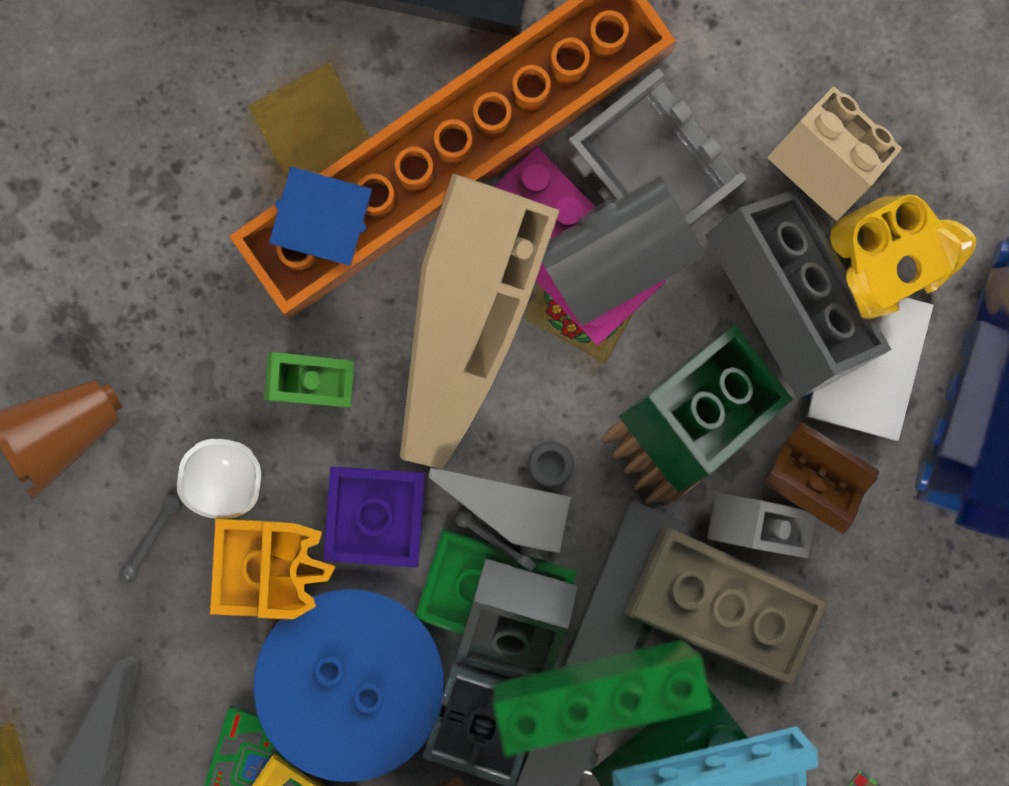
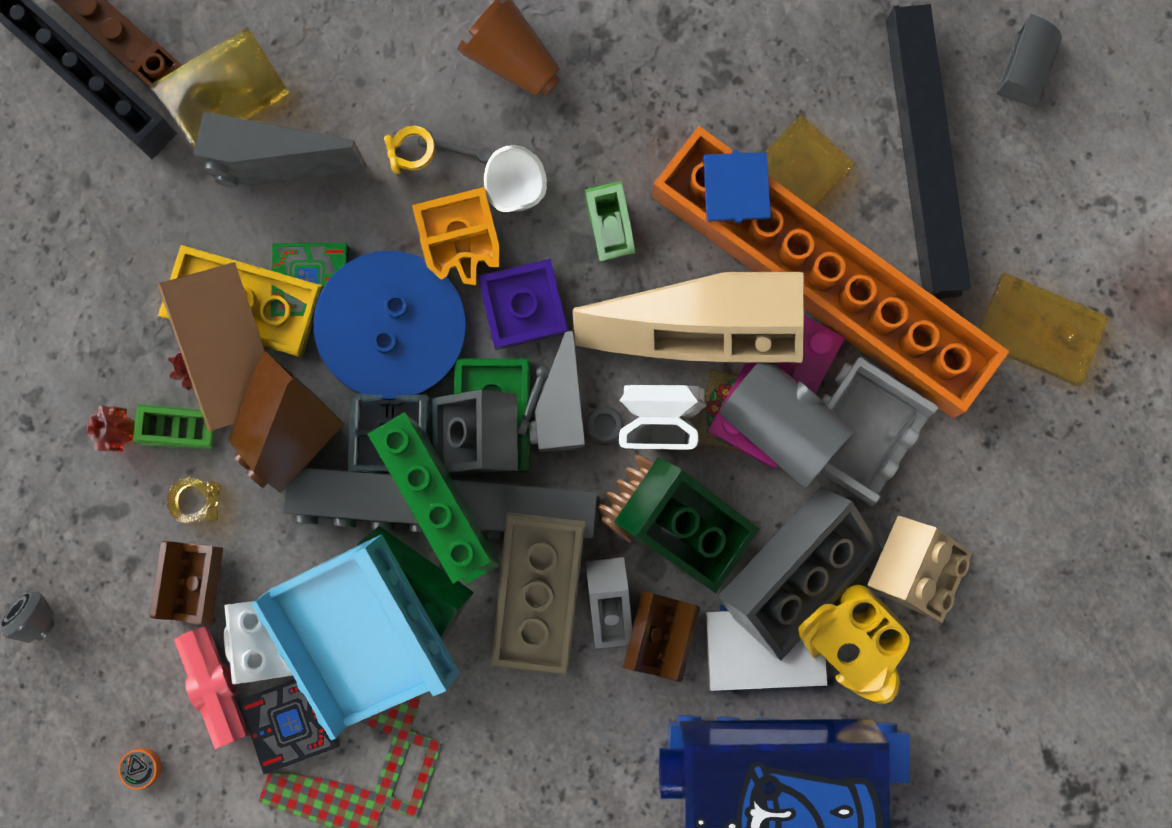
camera: 75 degrees right, 5 degrees down
(121, 612) = (393, 143): none -> yellow piece
(570, 395) = (662, 416): none -> white piece

